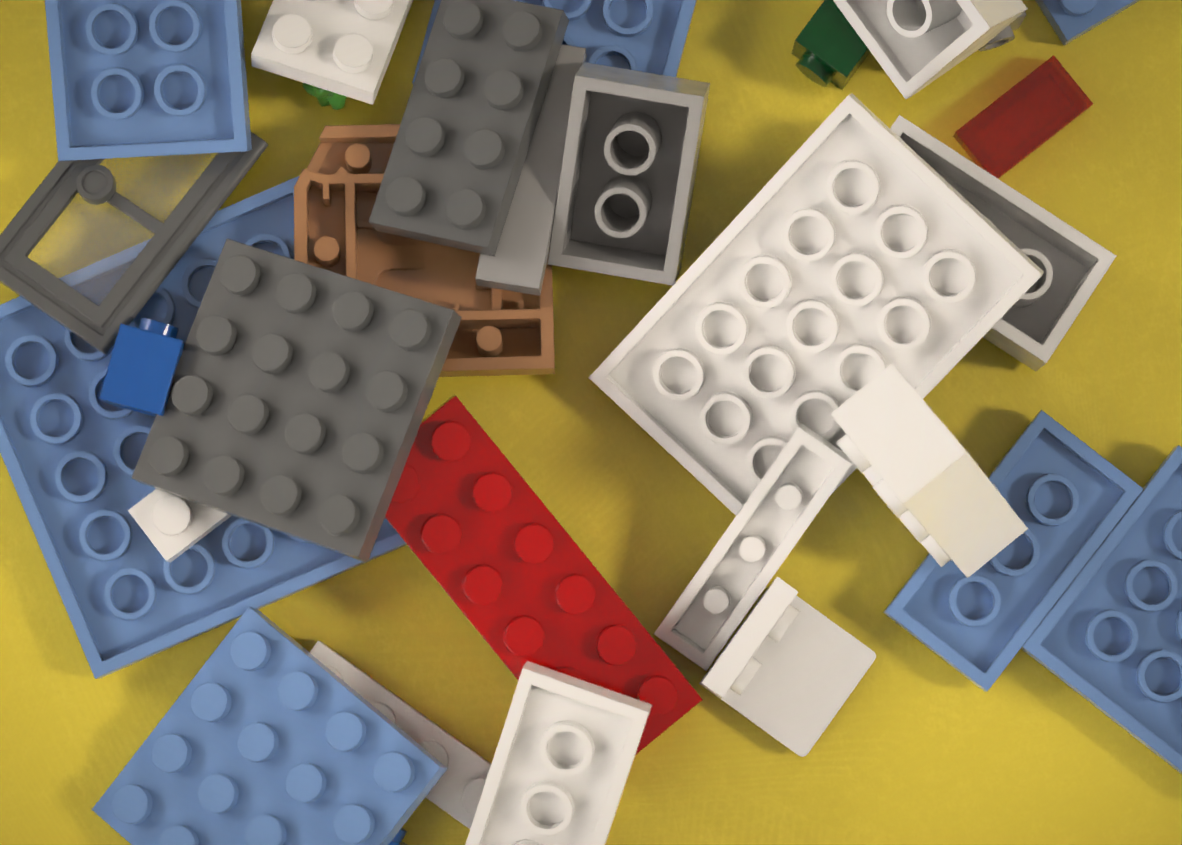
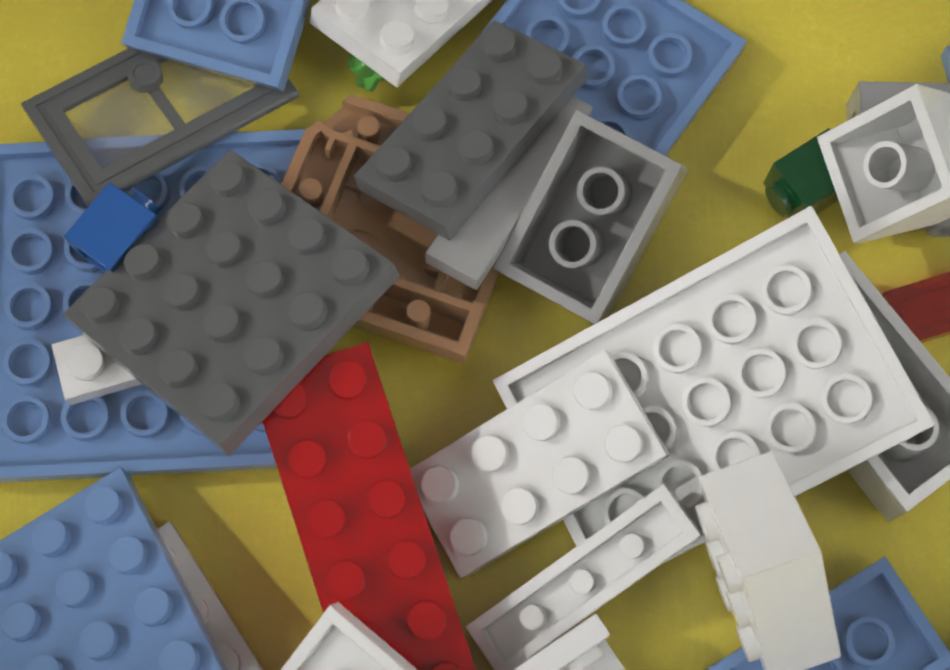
camera: 15 degrees right, 10 degrees down
(664, 447) = (536, 464): none -> white plate

